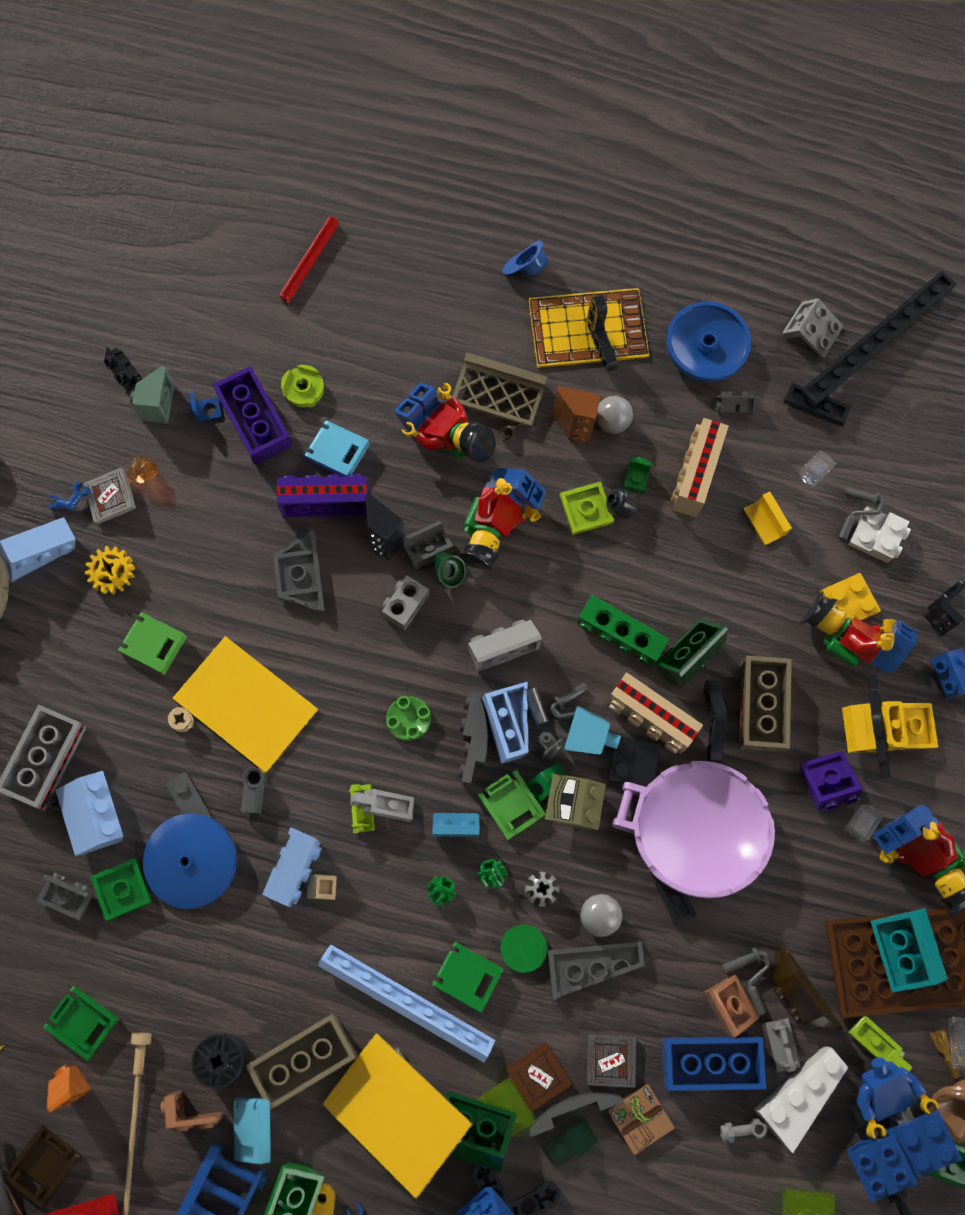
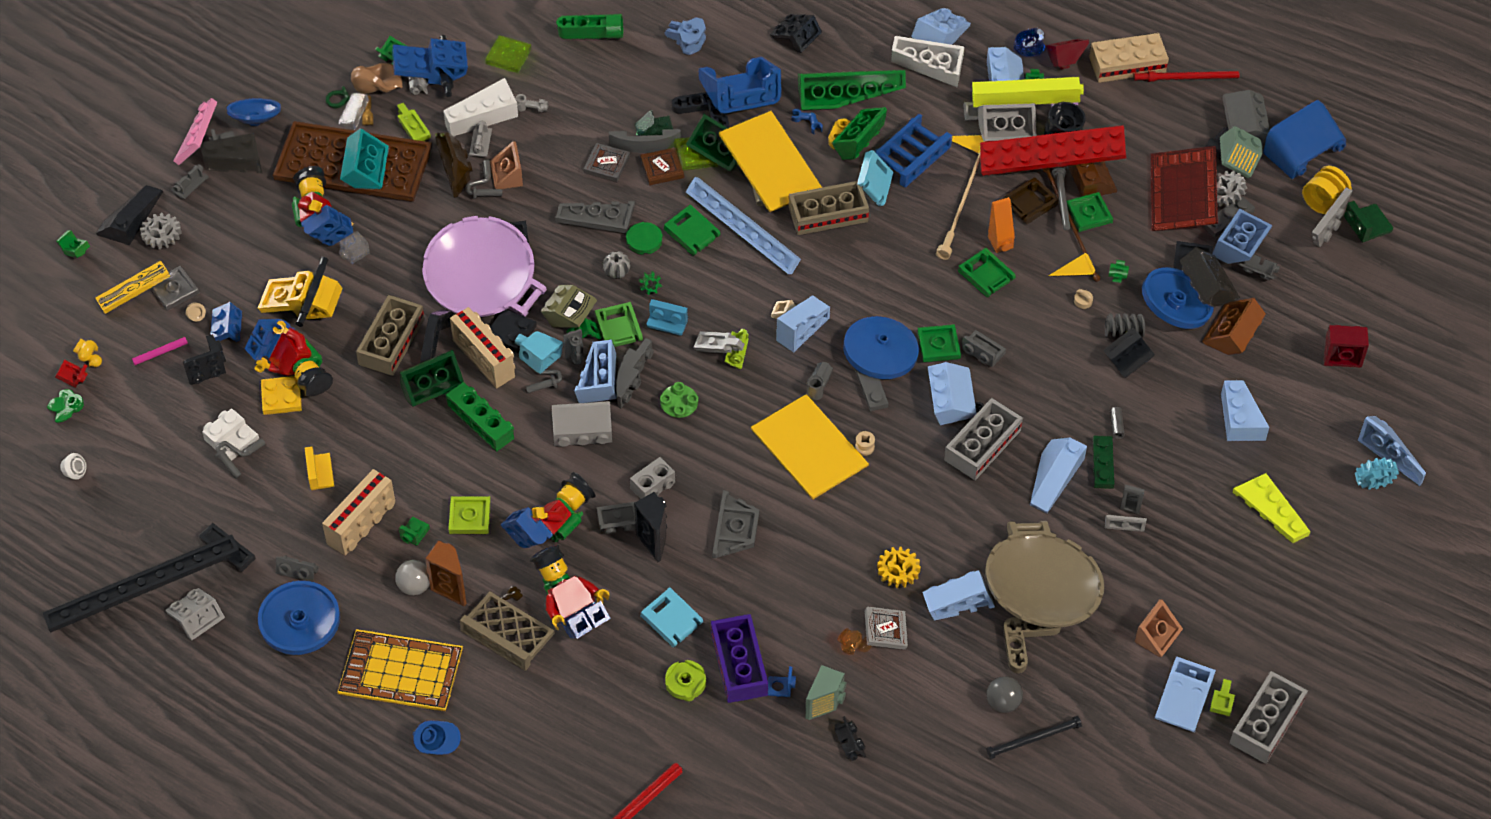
camera: 160 degrees left, 20 degrees down
(72, 502) = (923, 630): blue arm -> none
(147, 640) = (877, 507): bright green container -> none
(173, 1110) = (916, 193): nougat bracket -> none
(233, 1053) = (887, 221): black wheel -> none
(322, 496) = (695, 570): dark purple brick -> none
(441, 891) = (693, 281): green gear -> none
(449, 570) = (607, 489): dark green piece -> none
(536, 707) = (572, 382): flat silver axle -> none
(595, 322) = (394, 643): black beam -> none
(601, 915) = (579, 236): light grey piece -> none
(622, 503) = (438, 506): black head -> none
(641, 1119) = (597, 126): medium nougat tile -> none
(713, 1063) = (537, 138): blue brick -> none
(817, 468) = (256, 494): clear brick -> none
(831, 781) = (364, 277): dark purple plate -> none
(888, 1091) = (424, 93): blue torso -> none

